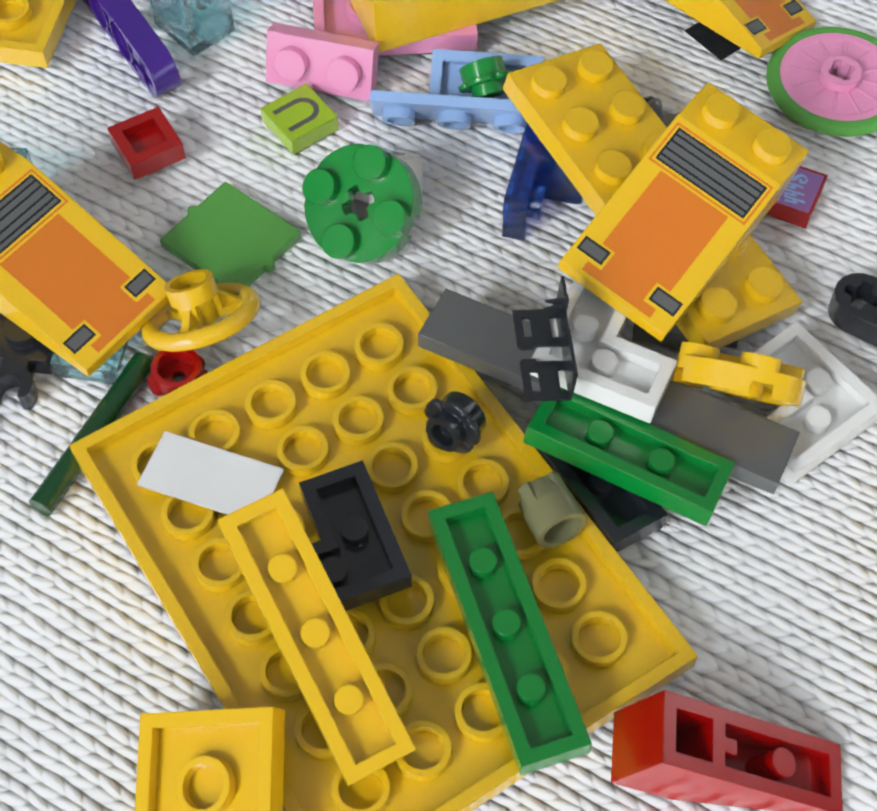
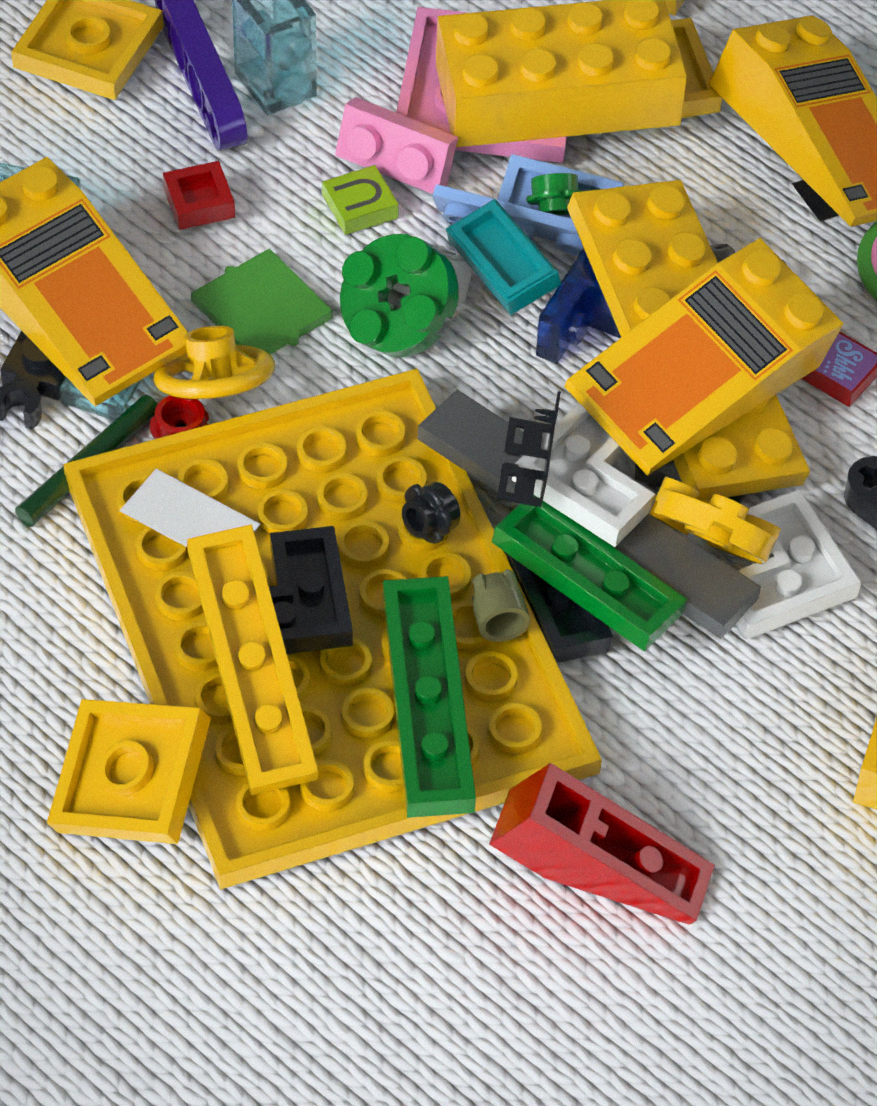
camera: 10 degrees right, 5 degrees down
(454, 147) = (503, 256): none -> teal tile

